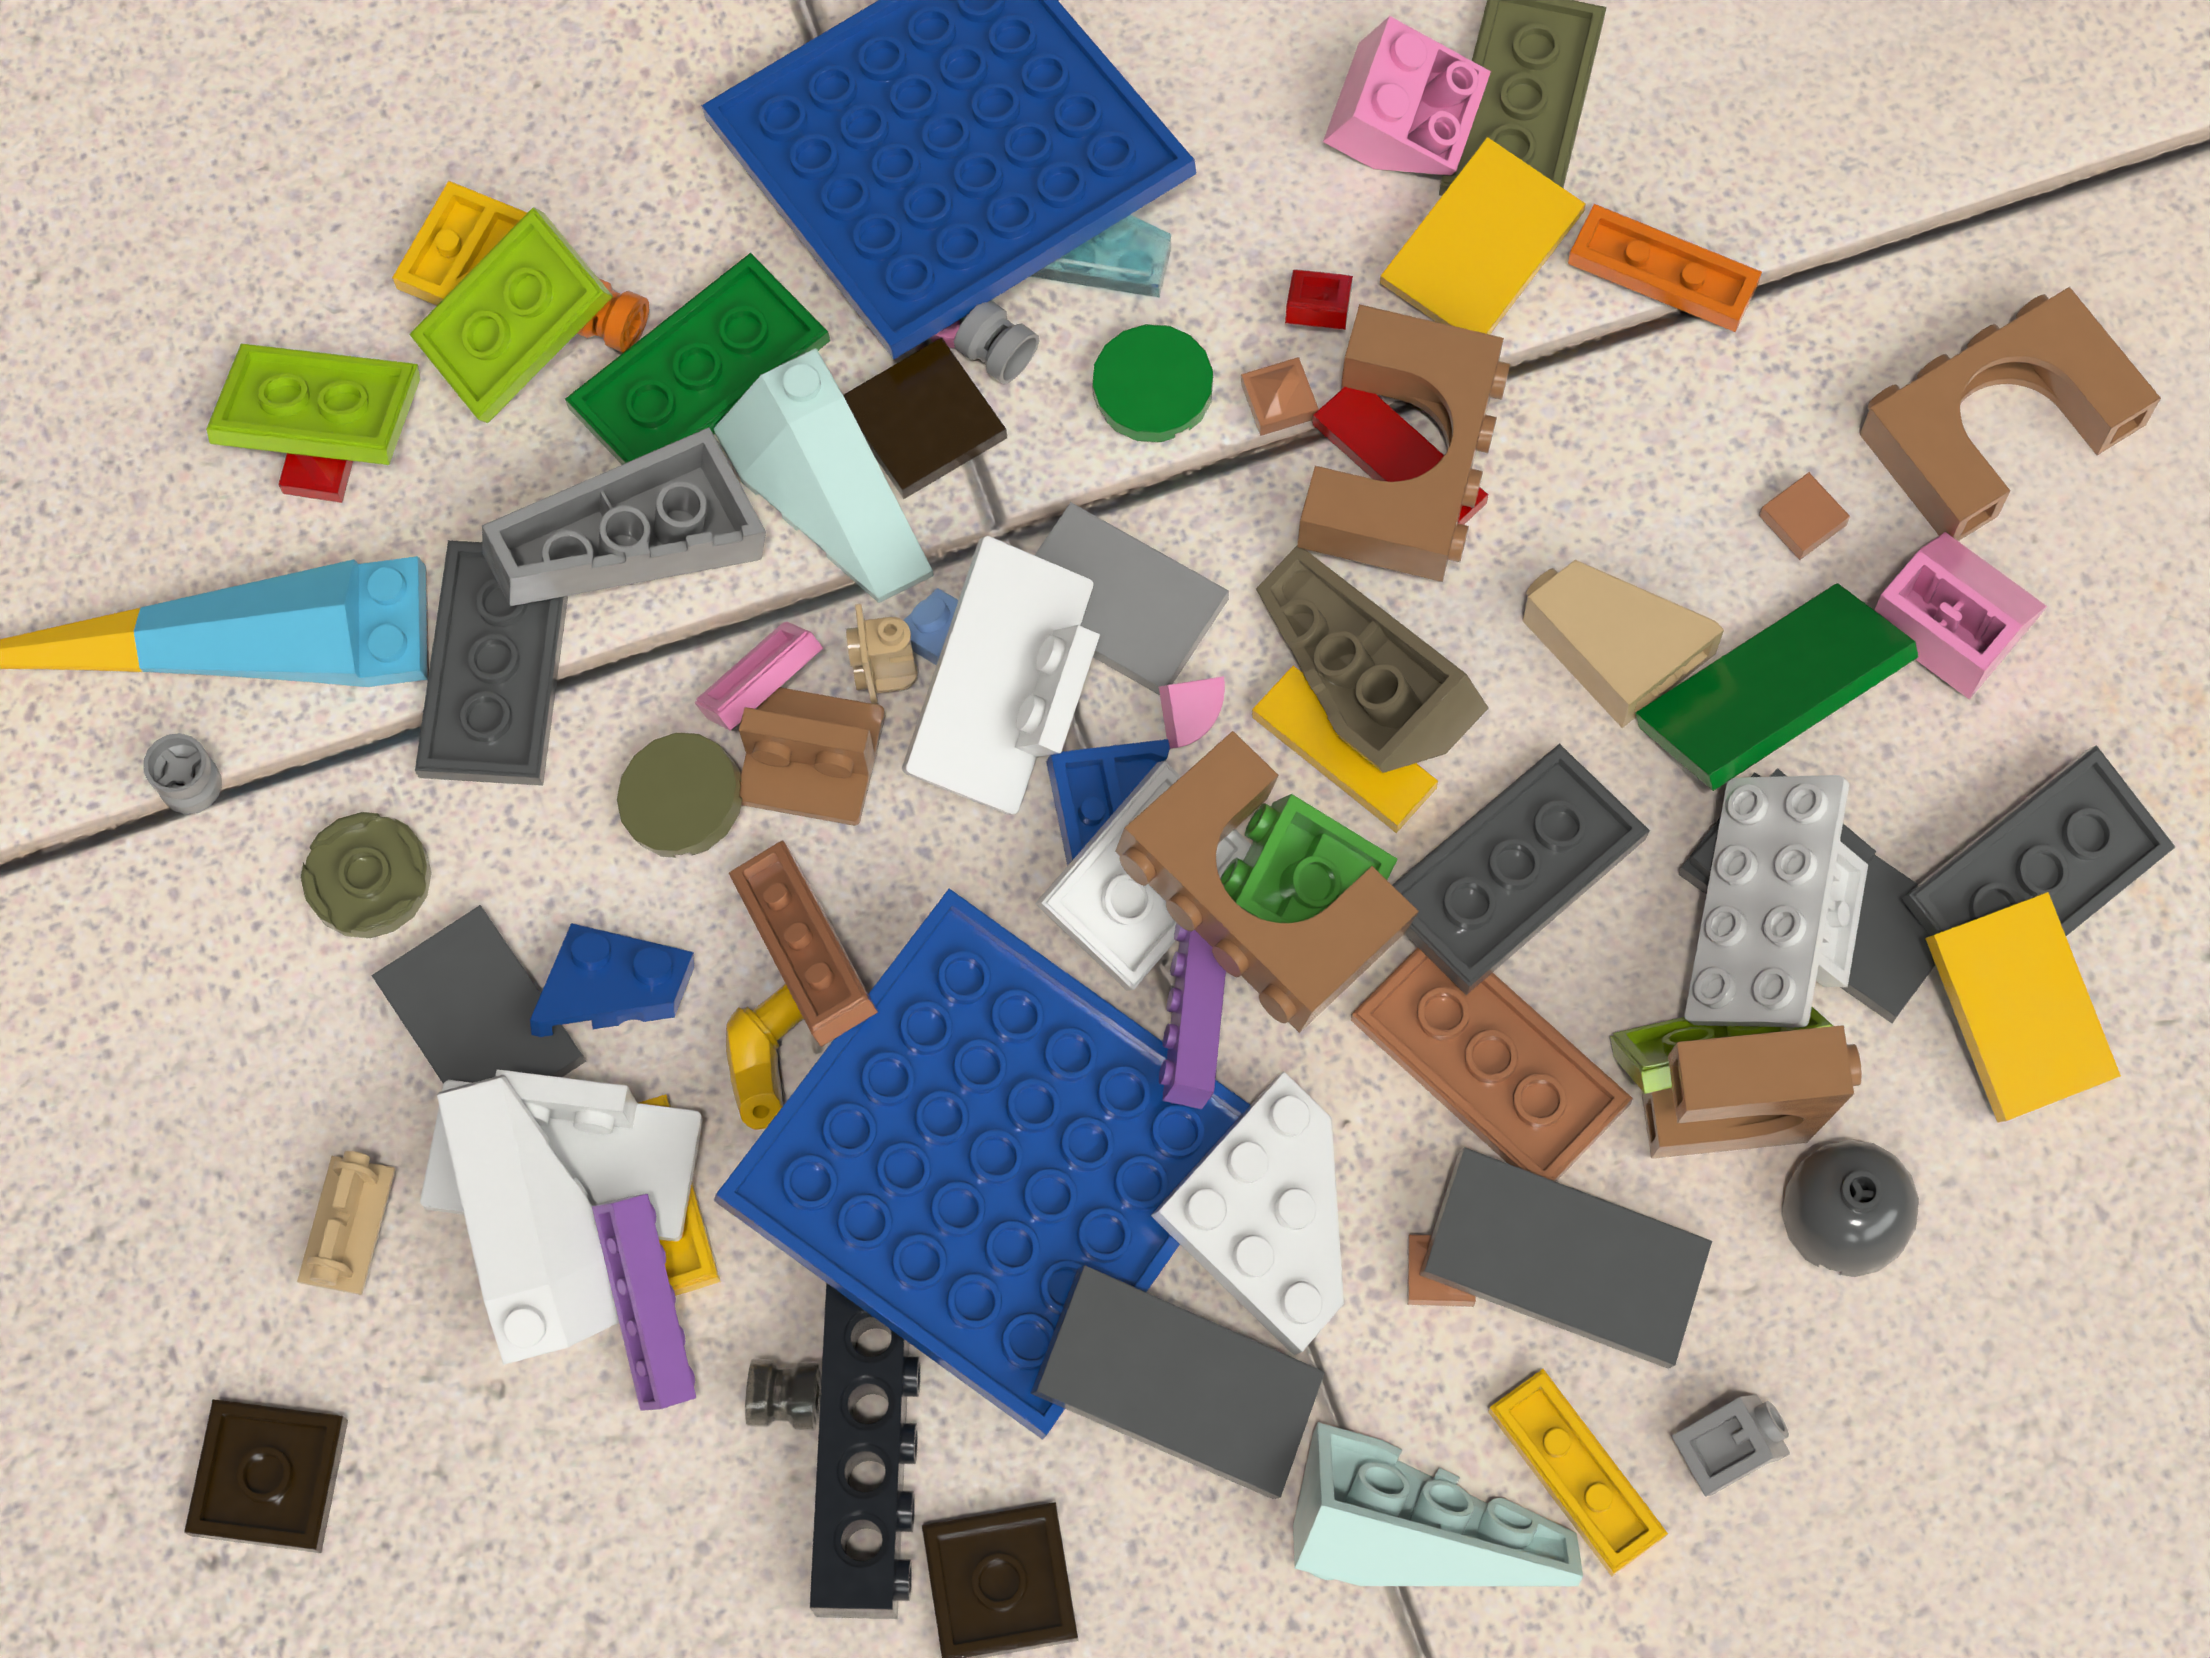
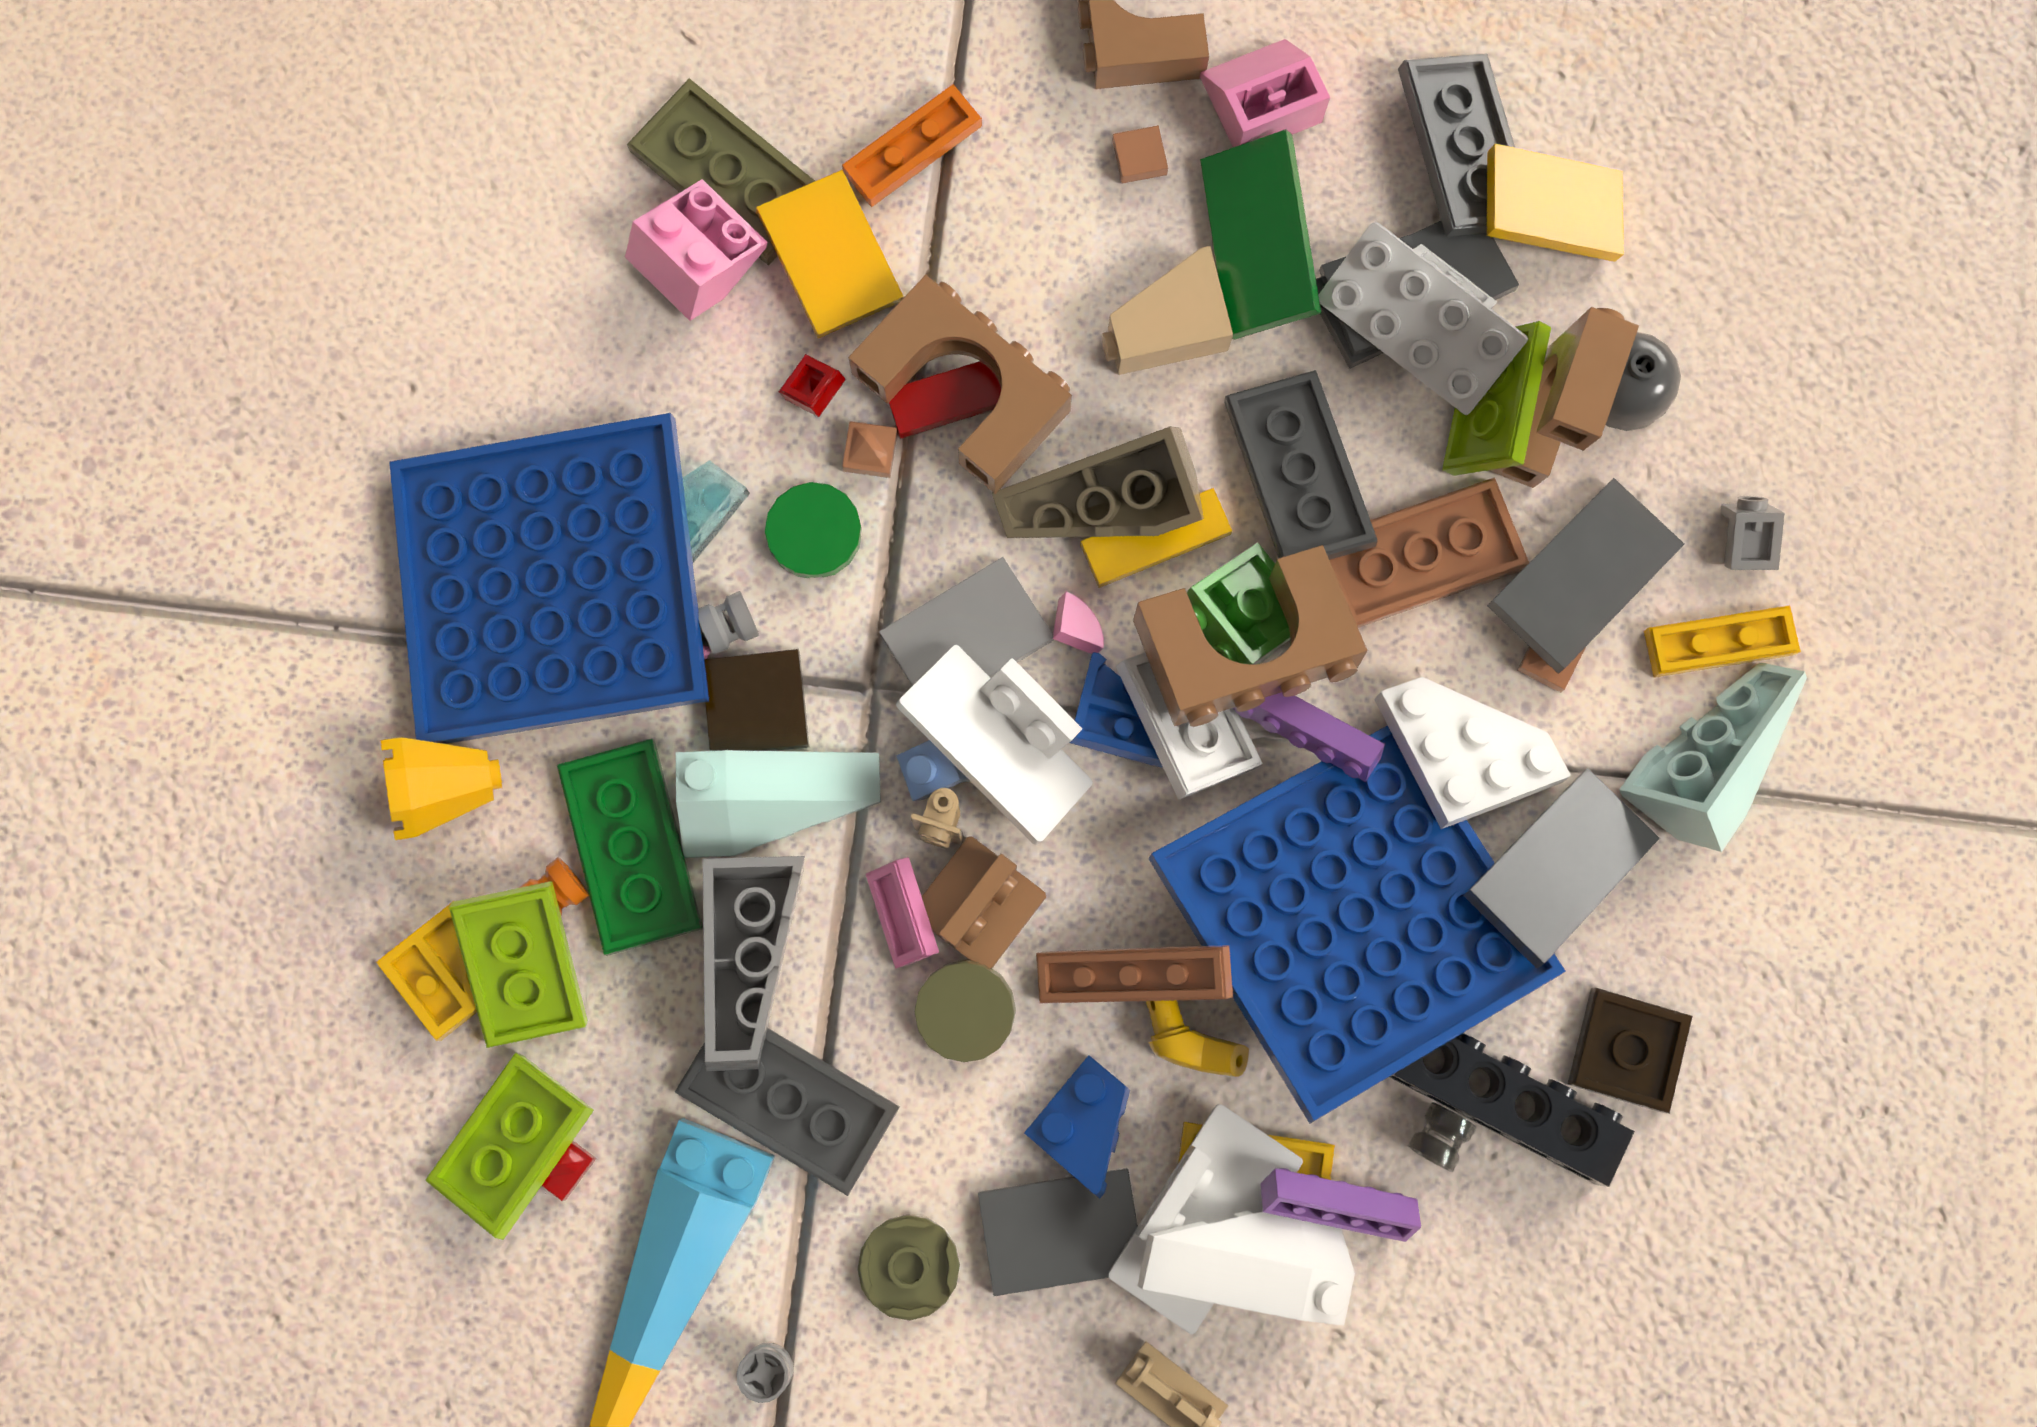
camera: 70 degrees left, 10 degrees up
(663, 135) = (435, 783): none -> yellow cone

